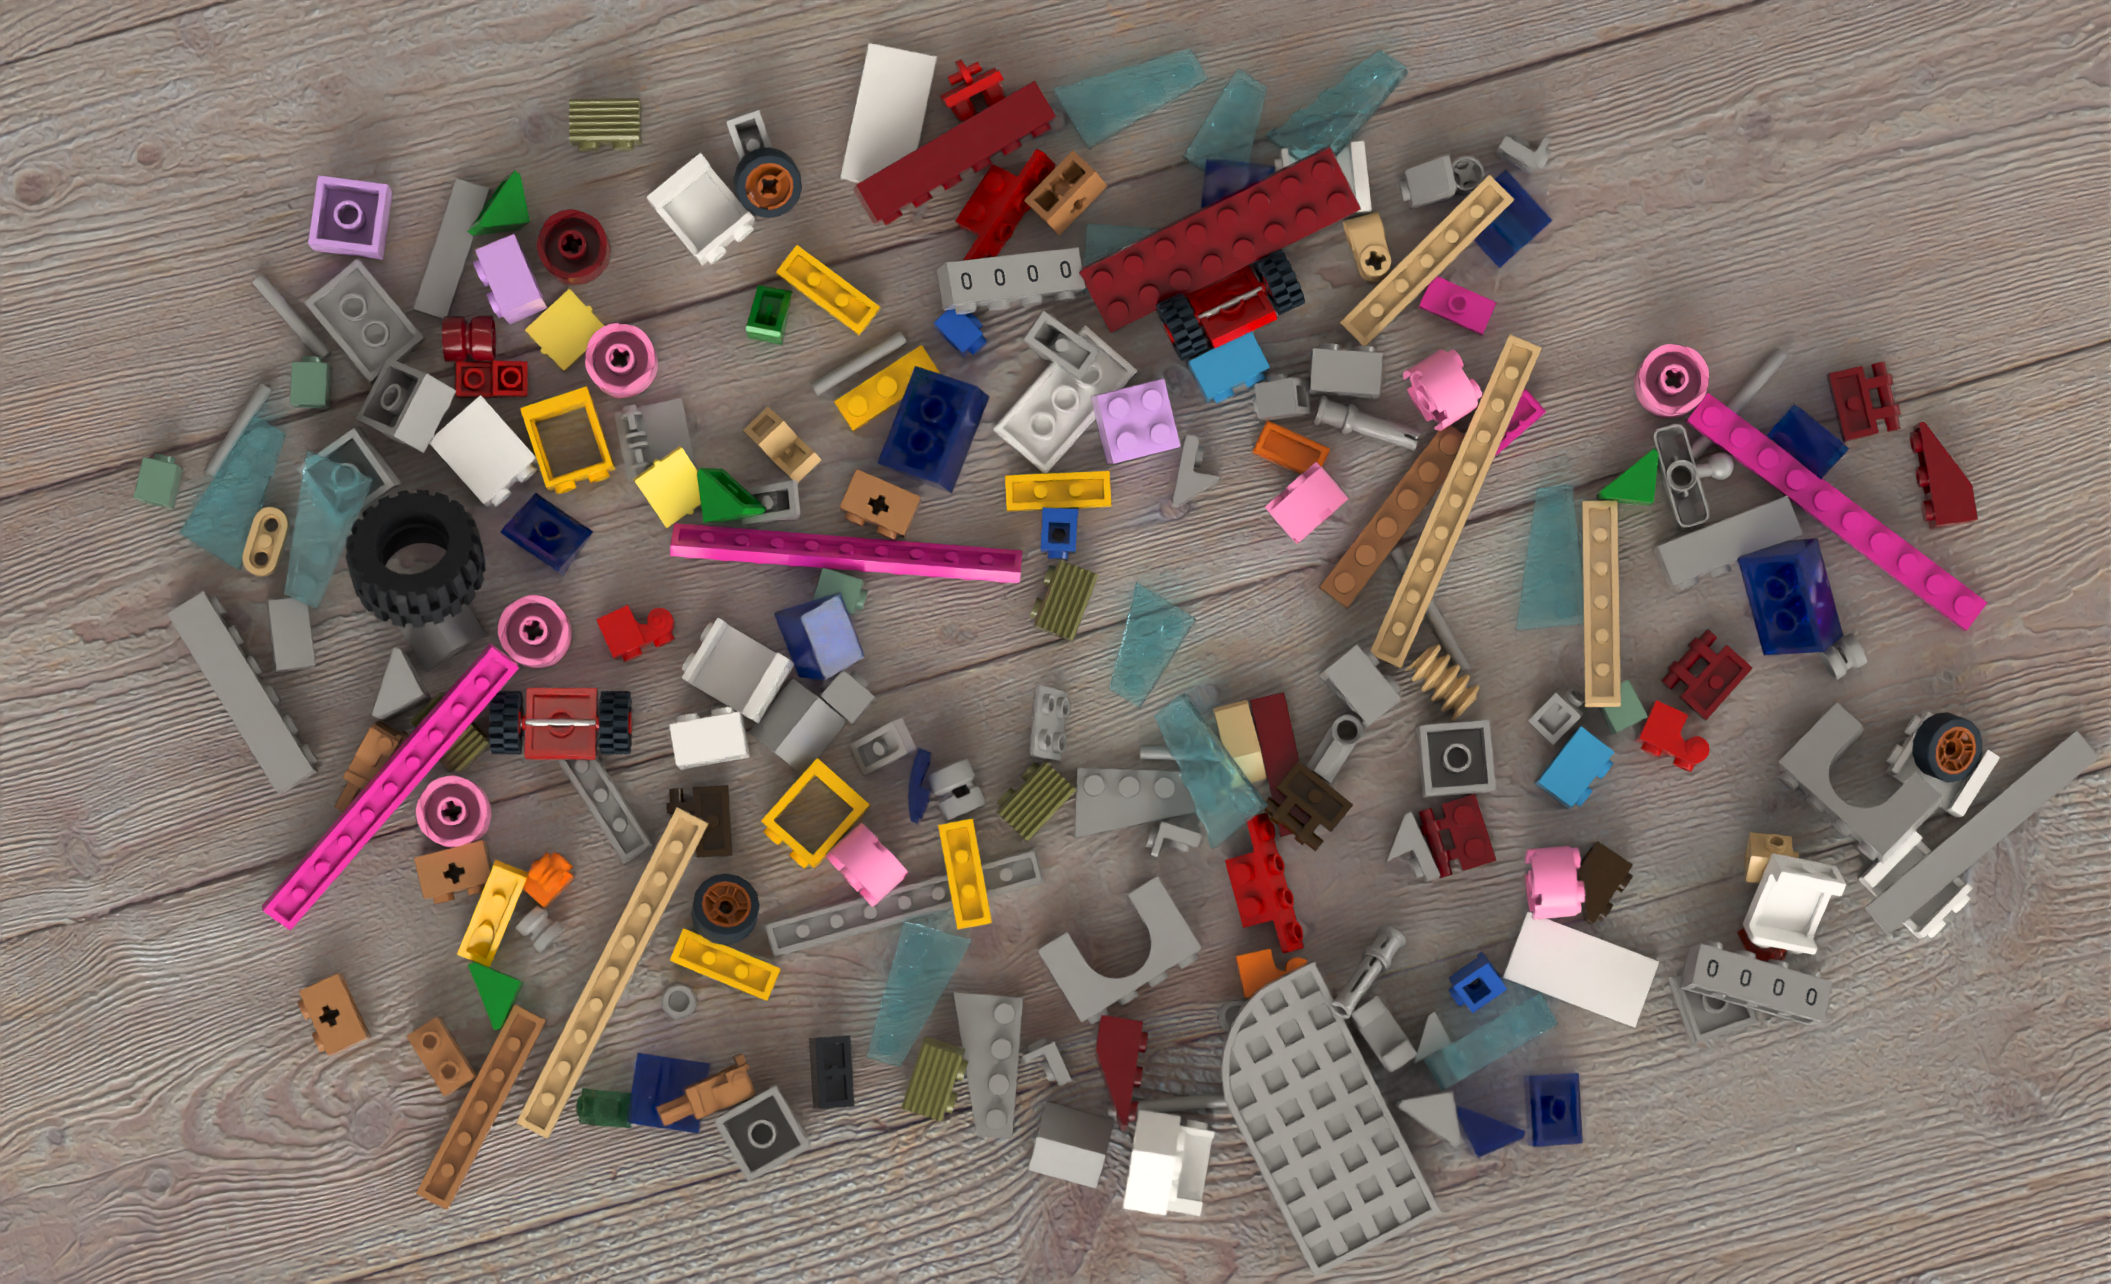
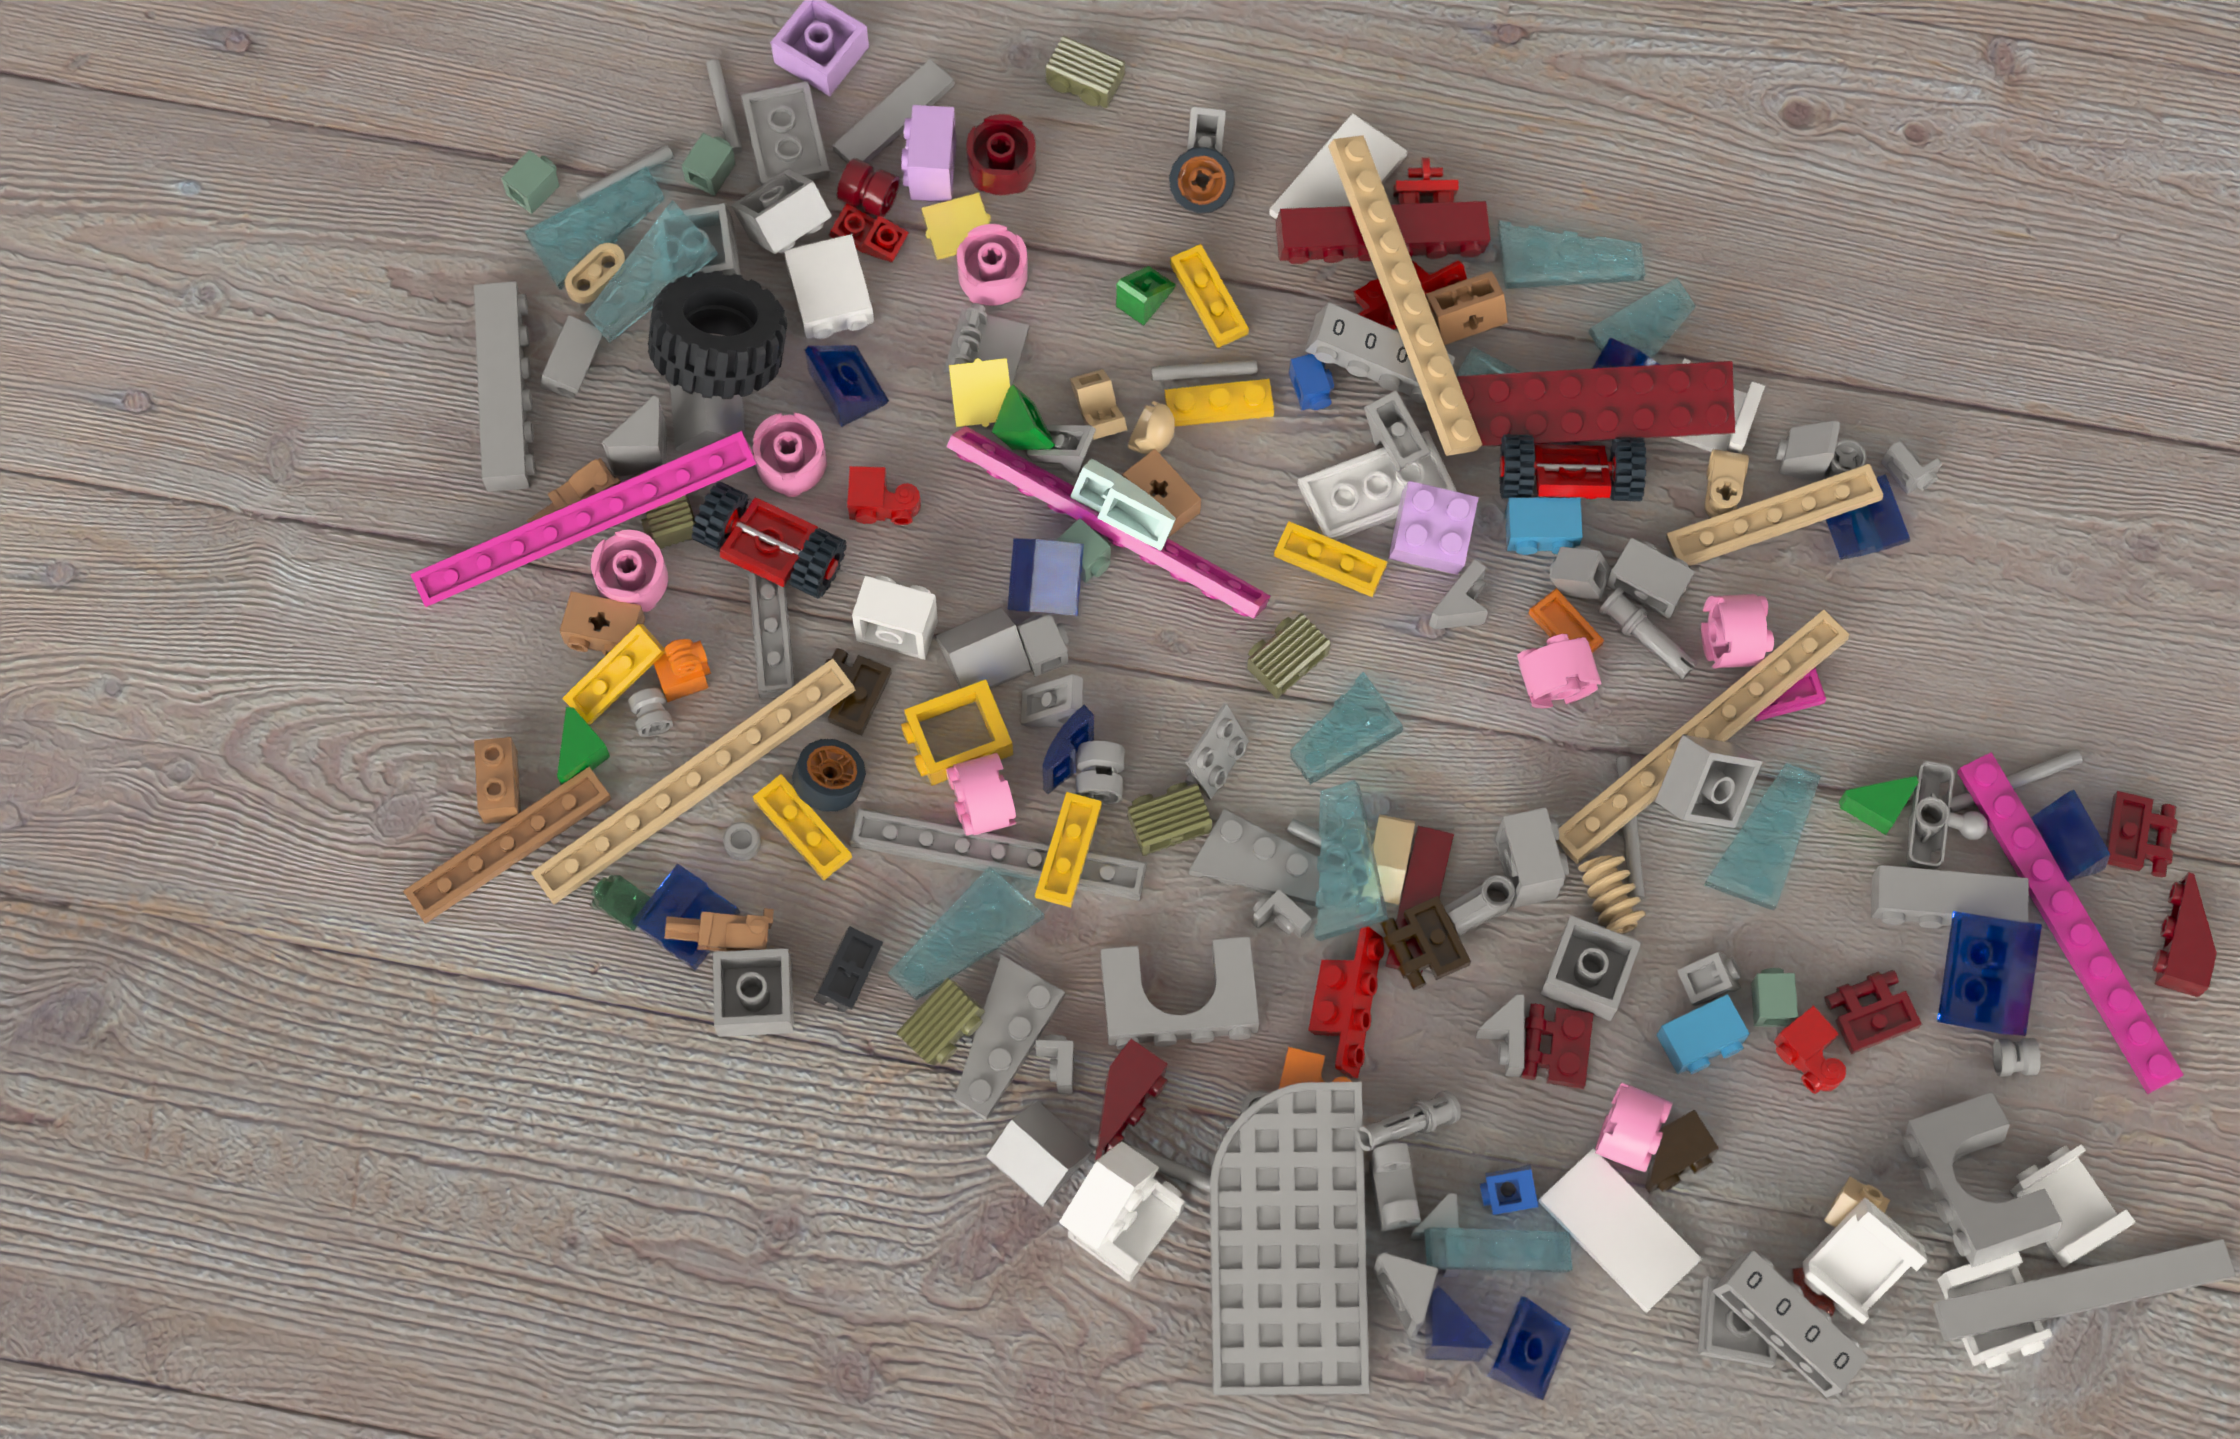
camera: 30 degrees right, 15 degrees down
(336, 995) = (428, 715): medium nougat brick -> none
(504, 210) = (960, 93): green slope -> none
(557, 406) = (915, 280): yellow window -> none
(701, 210) = (1130, 179): white panel -> none
(736, 670) = (954, 572): white panel -> none
(843, 448) = (1153, 429): none -> tan hair
(855, 536) = (1123, 504): none -> light aqua slope
(933, 429) = (1244, 450): clear blue slope -> none
(1006, 214) = (1405, 296): none -> tan plate
(1059, 519) = (1313, 582): blue brick -> none
(1342, 110) = (1765, 356): clear light blue wing -> none
(1393, 517) = (1629, 731): medium nougat plate -> none
(1457, 305) = (1784, 572): dark pink plate -> none
(1481, 546) = (1708, 781): none -> light grey brick
(1601, 603) = (1799, 893): tan plate -> none
(1671, 361) = (1948, 715): bright pink brick -> none
(1962, 749) = (2102, 1187): black wheel -> none

